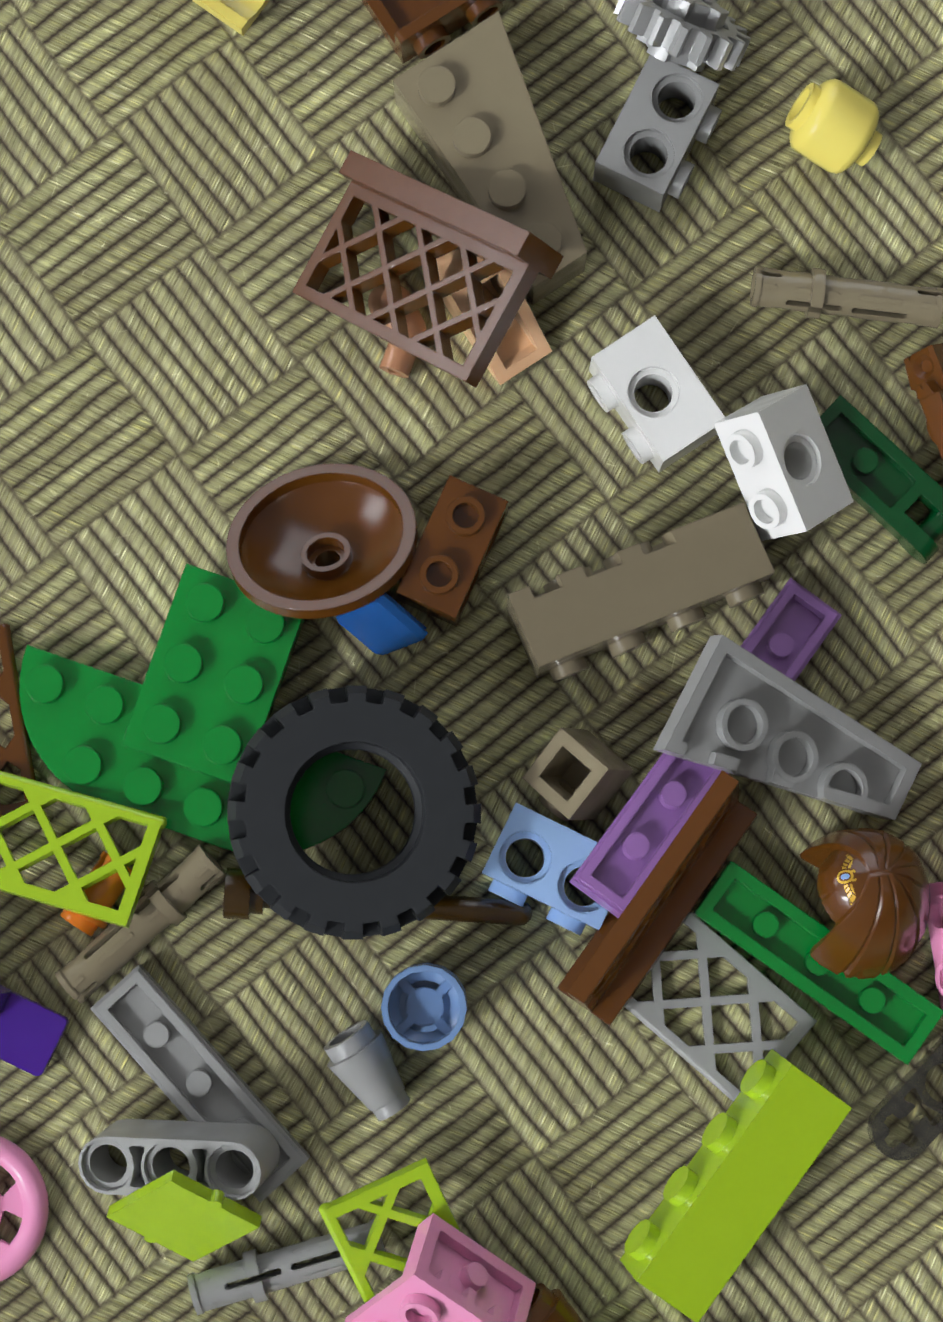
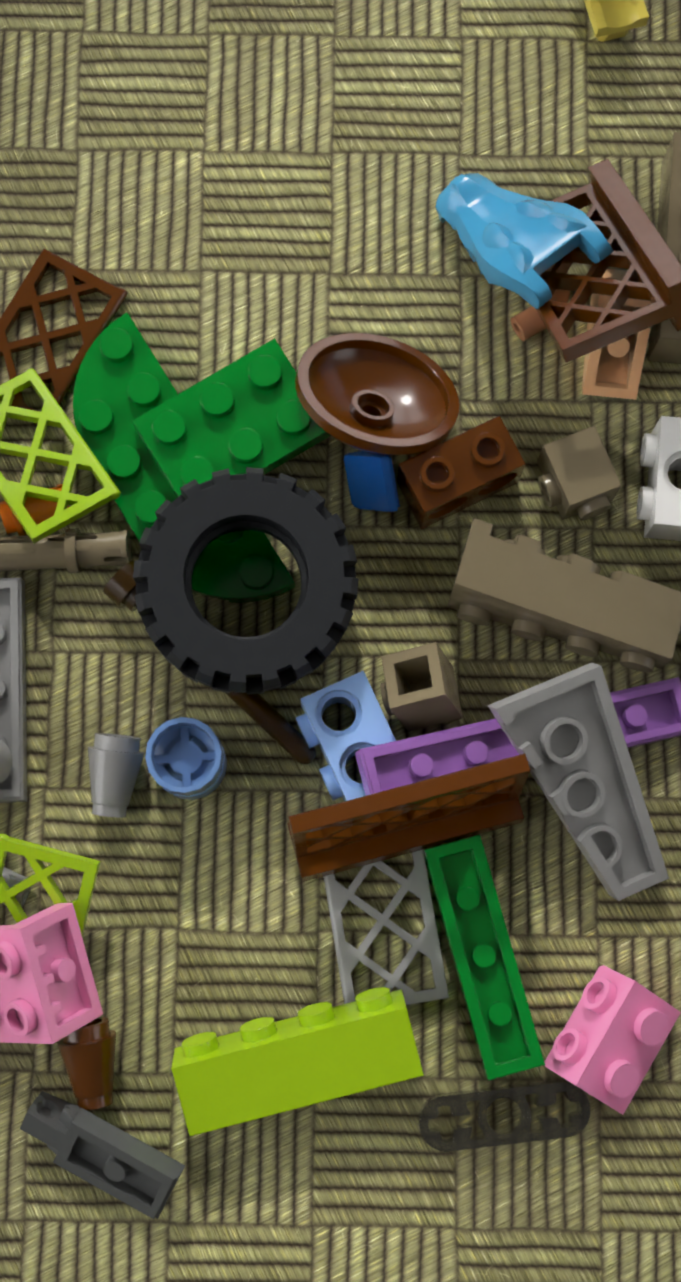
camera: 35 degrees right, 5 degrees down
(325, 291) = (516, 234): none -> dark azure animal
(559, 468) = (578, 475): none -> dark tan brick
(875, 898) = (559, 942): reddish brown hair -> none

